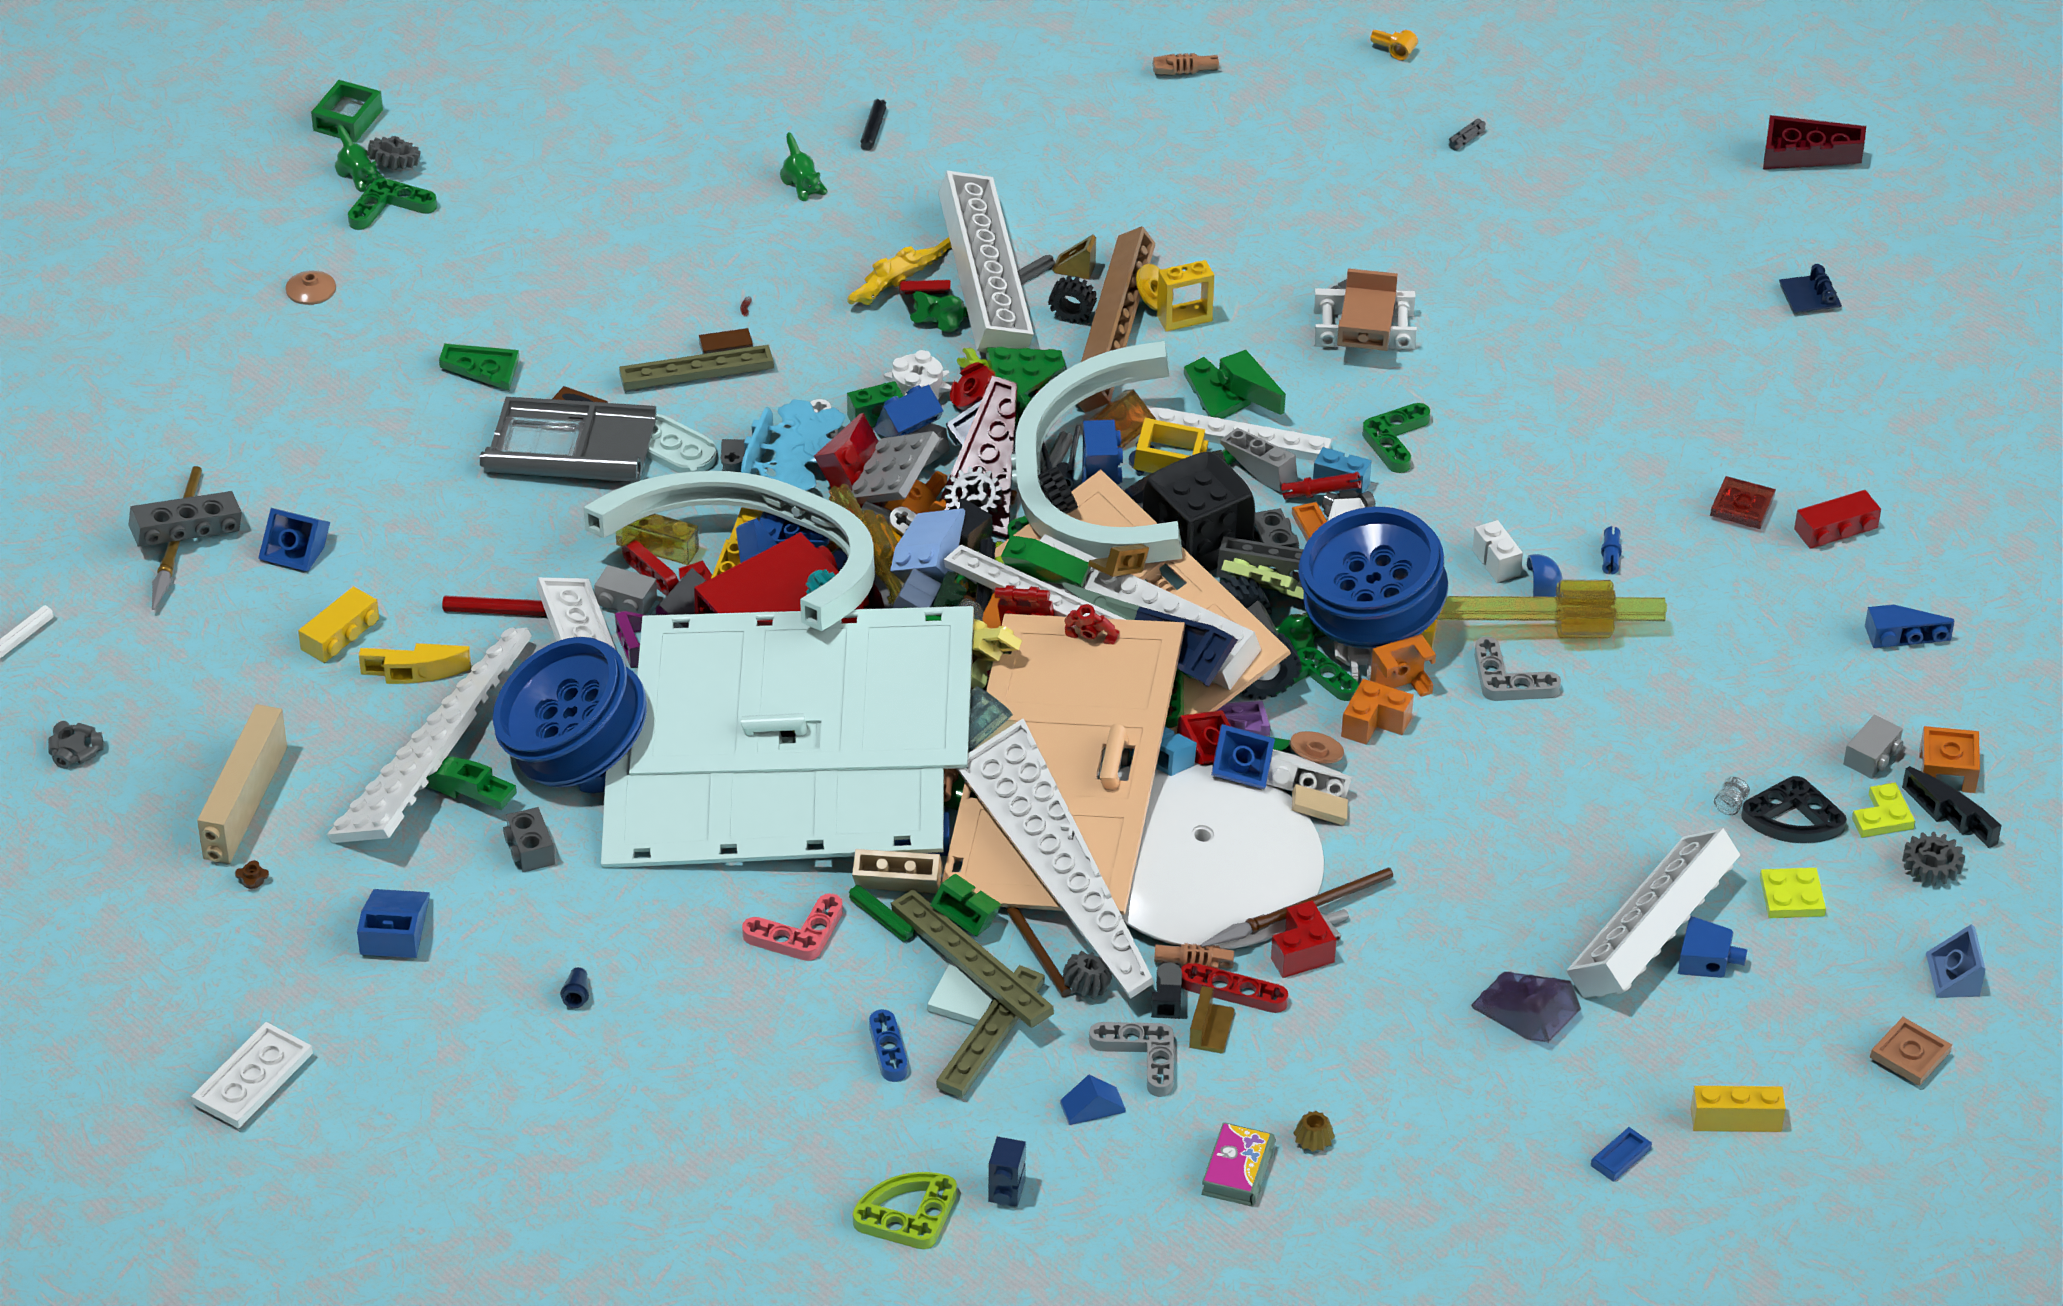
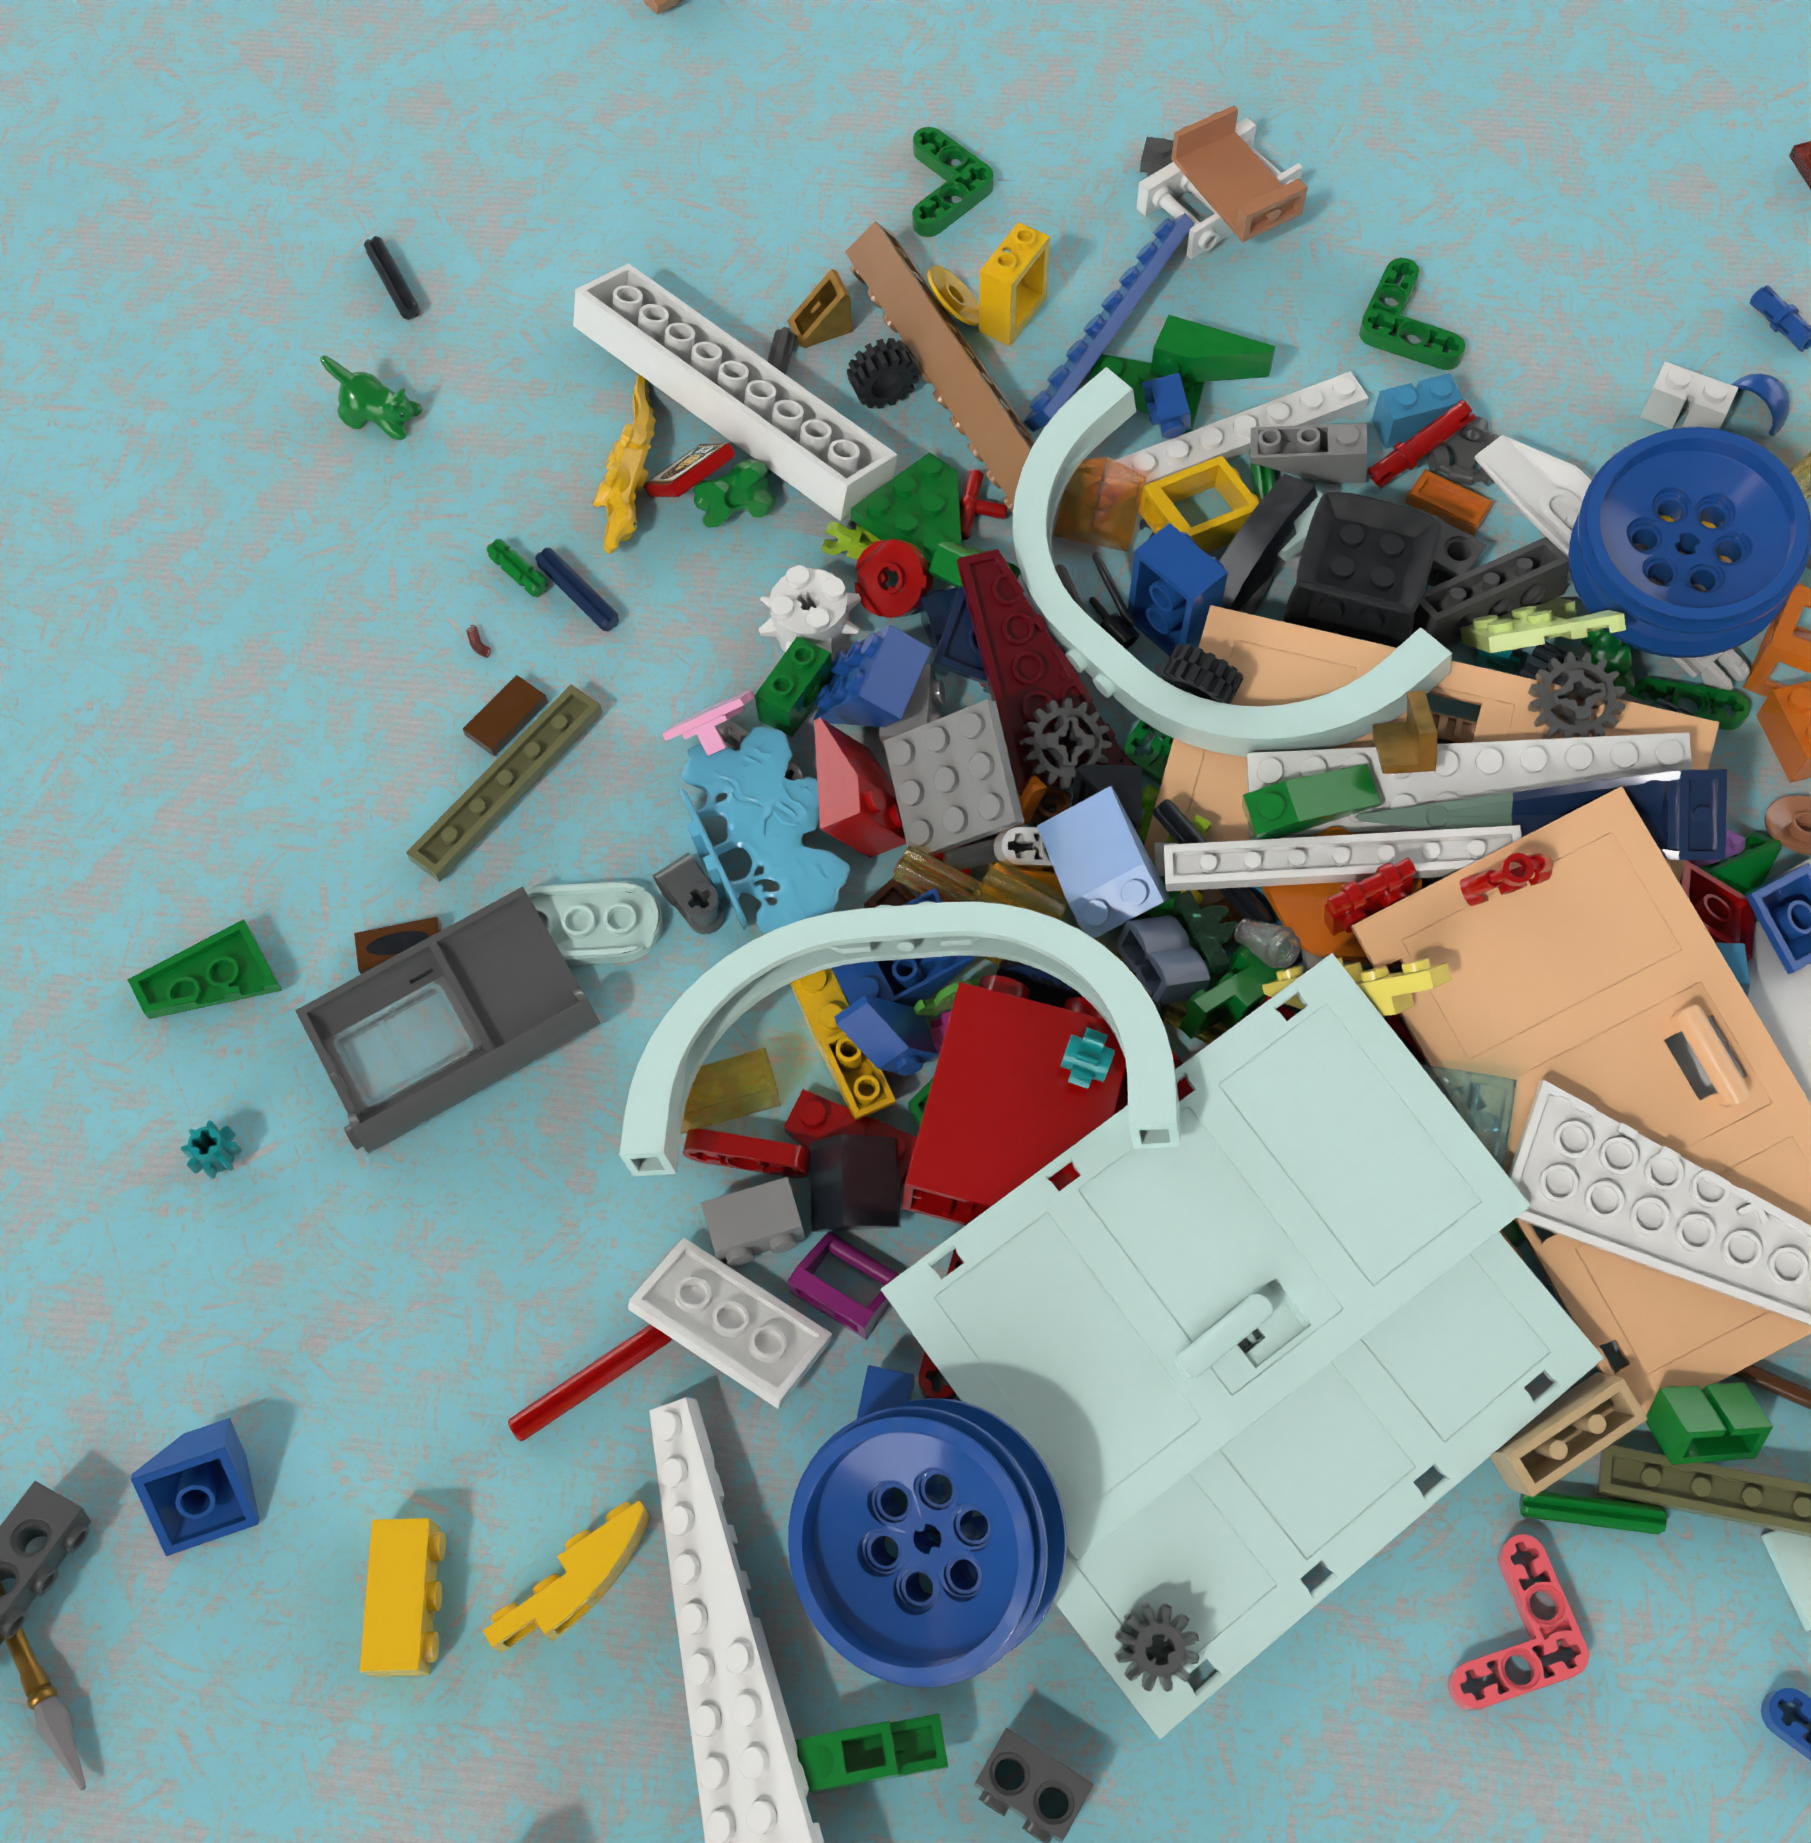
camera: 35 degrees left, 20 degrees up
(417, 427) = (211, 1149): none -> teal gear
(630, 819) = (1171, 1655): none -> dark grey gear
(797, 285) = (517, 567): none -> green axle
(817, 310) = (577, 589): none -> dark blue axle
(817, 390) = (705, 722): none -> bright pink piece
(1205, 394) = (1167, 405): none -> blue brick
(1225, 595) = (1575, 681): none -> dark grey gear
(1236, 242) = (957, 181): none -> green beam
(1240, 340) = (1105, 325): none -> blue plate

